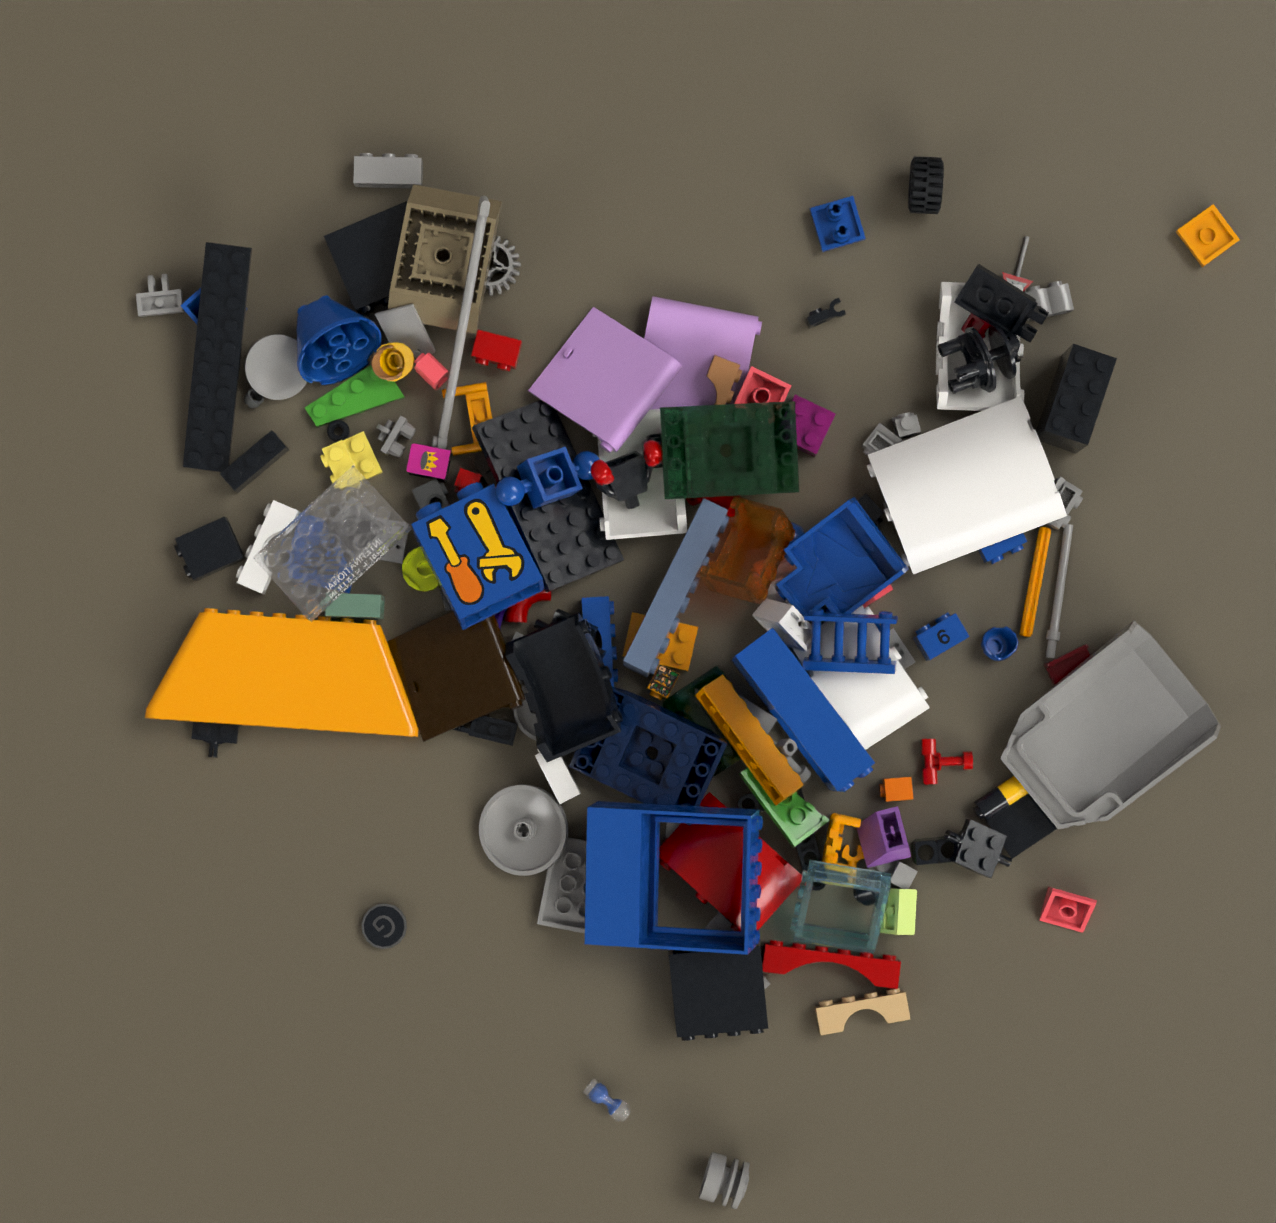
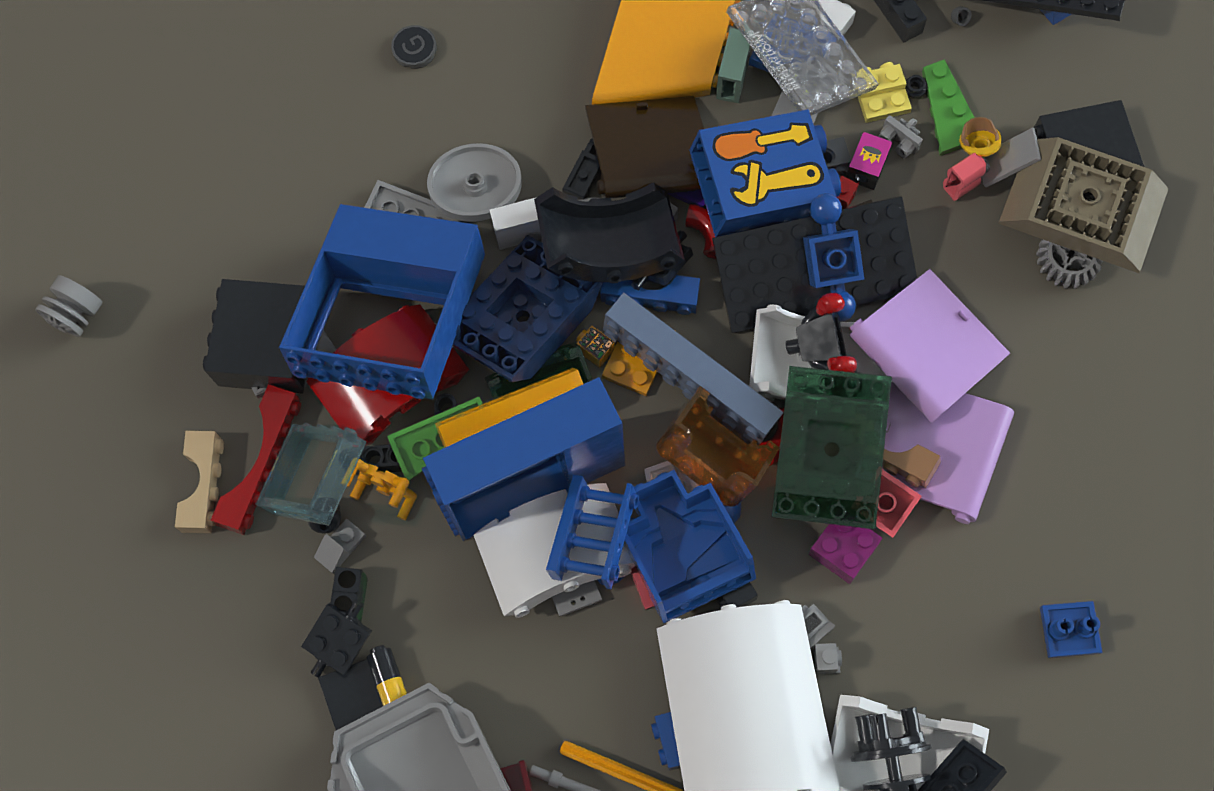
camera: 105 degrees right, 15 degrees down
(273, 367) = (990, 39): light grey piece -> none
(333, 341) = (1008, 83): blue cone -> none
(387, 171) = (1183, 175): light grey brick -> none
(440, 440) = (1139, 224): light grey hinge -> none
(478, 409) = (919, 218): light orange plate -> none
(496, 350) = (978, 244): red brick -> none
(599, 1094) = (194, 208): clear piece -> none
(785, 620) = (631, 470): white window -> none
(818, 316) = (966, 586): black plate -> none
(852, 861) = (361, 506): light orange bar -> none
(883, 838) = (375, 540): medium lavender slope -> none
(896, 789) = (424, 566): orange brick -> none
(900, 912) = (293, 543): yellowish green panel -> none
(925, 185) = (1107, 735): black tyre -> none
(934, 761) = (445, 614): red bar -> none
(940, 637) = (579, 644): blue brick -> none
(977, 323) = (927, 760): dark red tile -> none
(999, 643) = (559, 712): blue hair -> none
(1067, 909) = (247, 728): coral slope -> none

